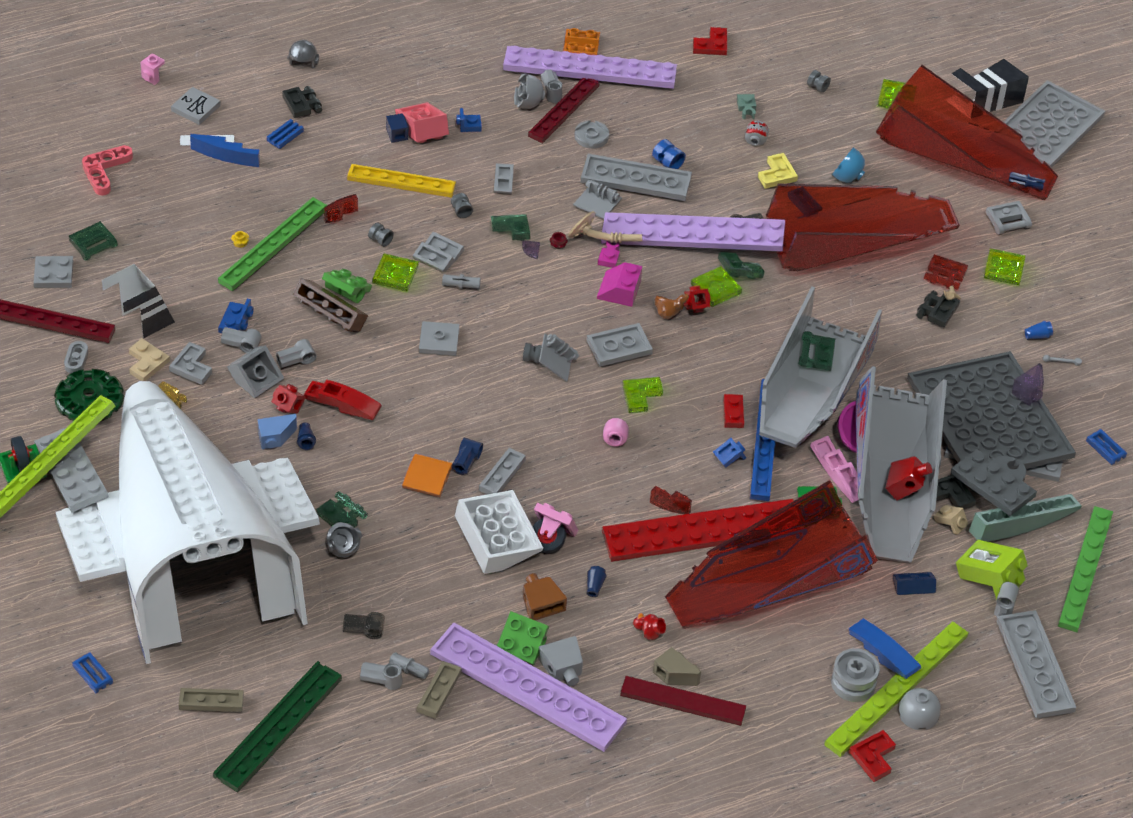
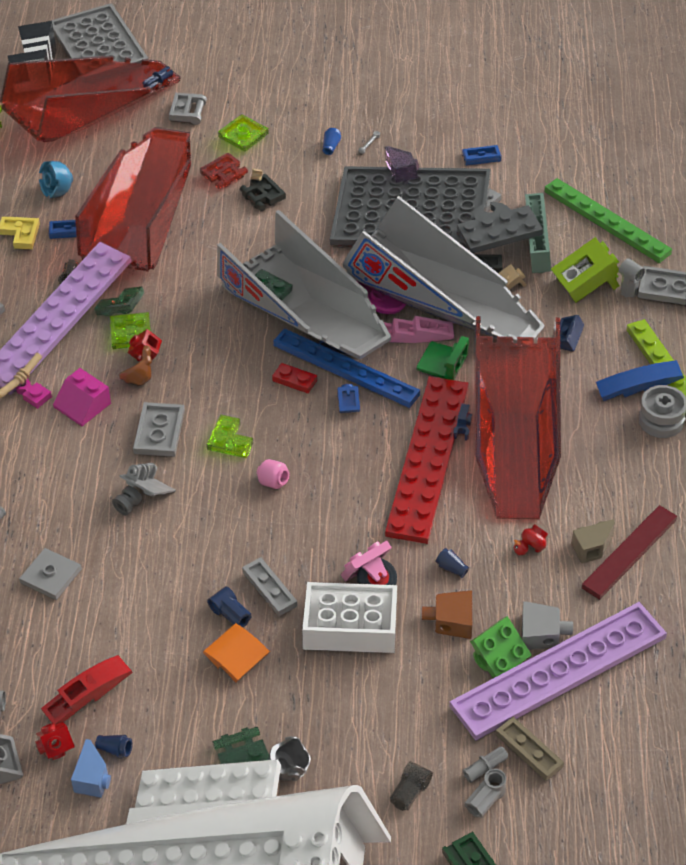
camera: 60 degrees left, 0 degrees up
(674, 503) = (388, 463): clear red slope -> none
(906, 476) = (459, 282): red torso -> none

